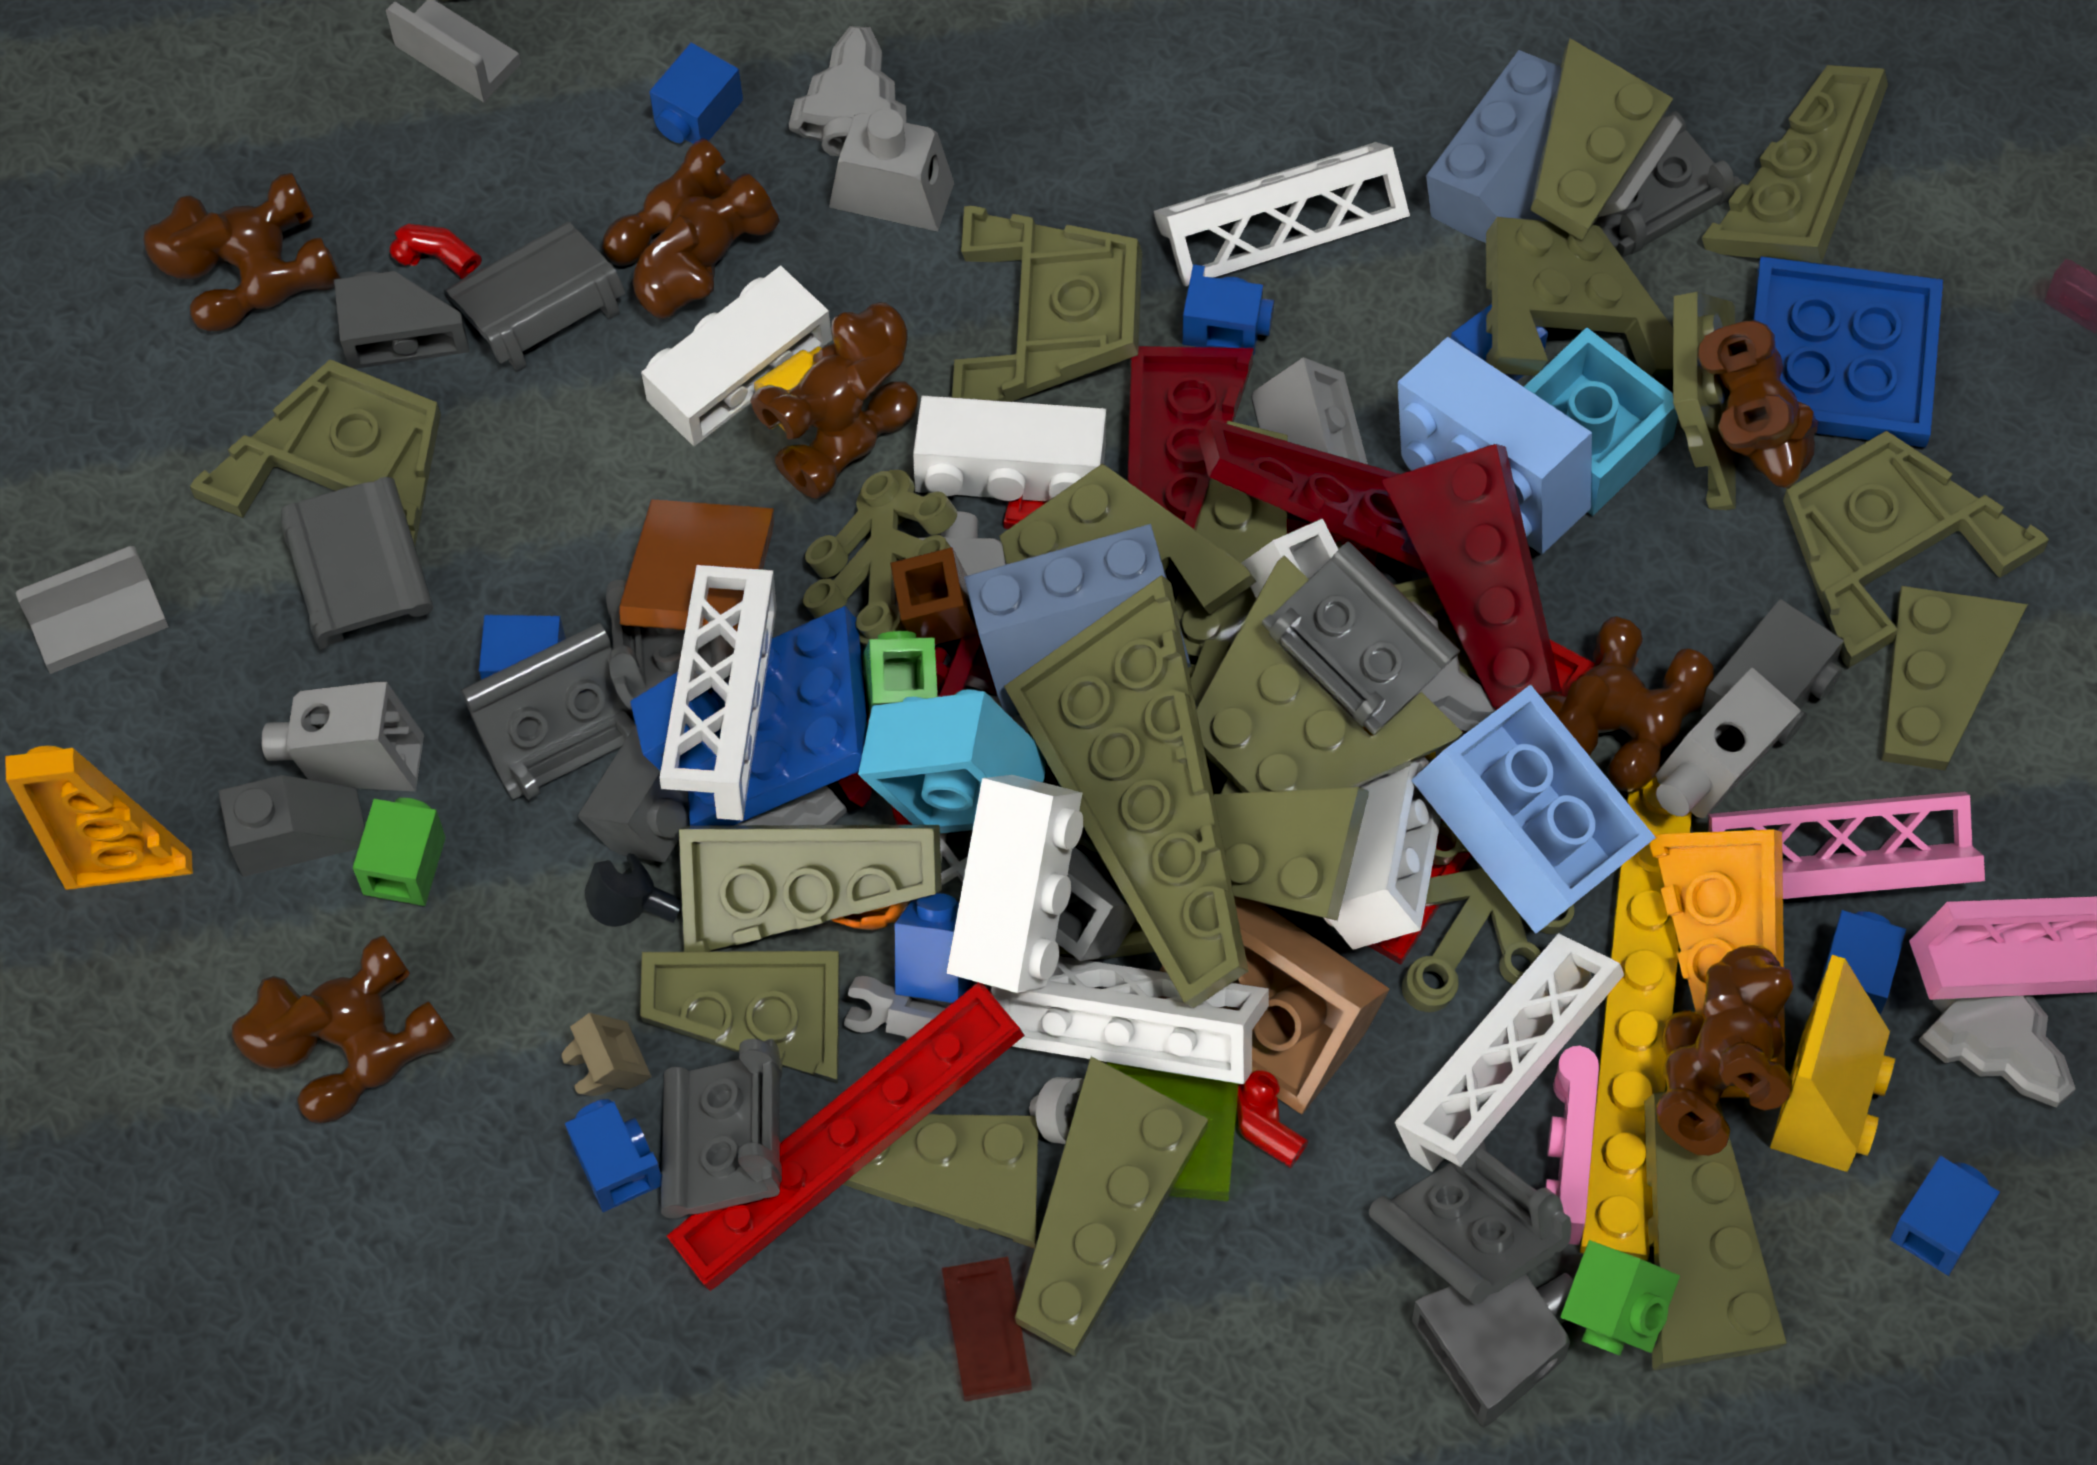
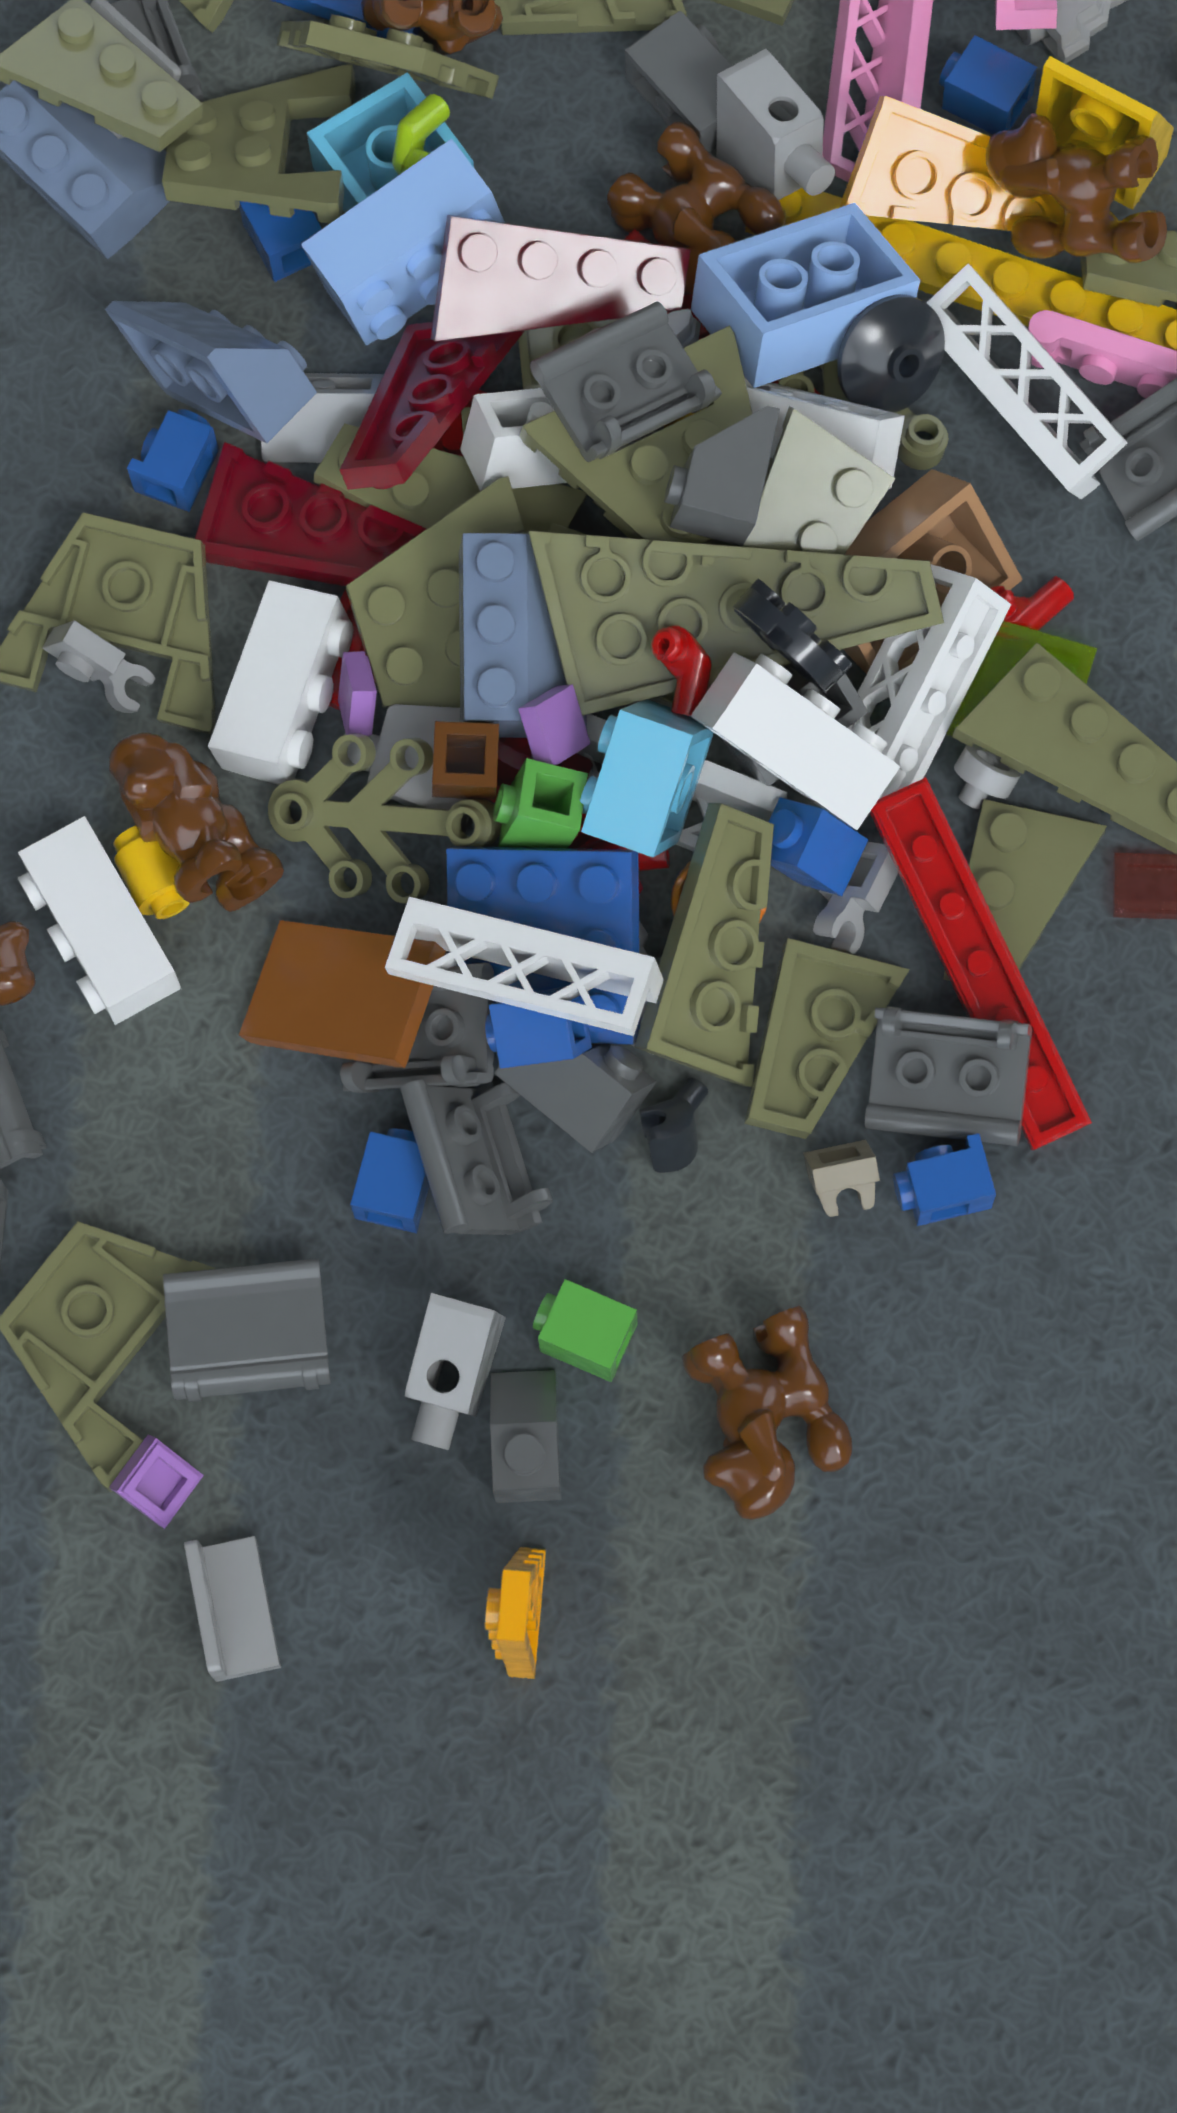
camera: 75 degrees left, 10 degrees up
(204, 526) = (156, 1481): none -> medium lavender tile
(982, 660) = (554, 725): none -> medium lavender tile
(995, 279) = (88, 656): none -> light grey plate
(1001, 508) = (357, 693): none -> medium lavender tile
(1076, 762) = (687, 663): none -> red arm
(1106, 836) = (791, 635): none -> black plate
(1274, 748) = (724, 480): none -> dark grey slope
(1277, 190) = (49, 377): white fence -> none
(1314, 299) = (216, 364): none -> sand blue slope
(1512, 900) = (891, 353): none -> black dish
(1608, 410) = (414, 130): none -> lime arm

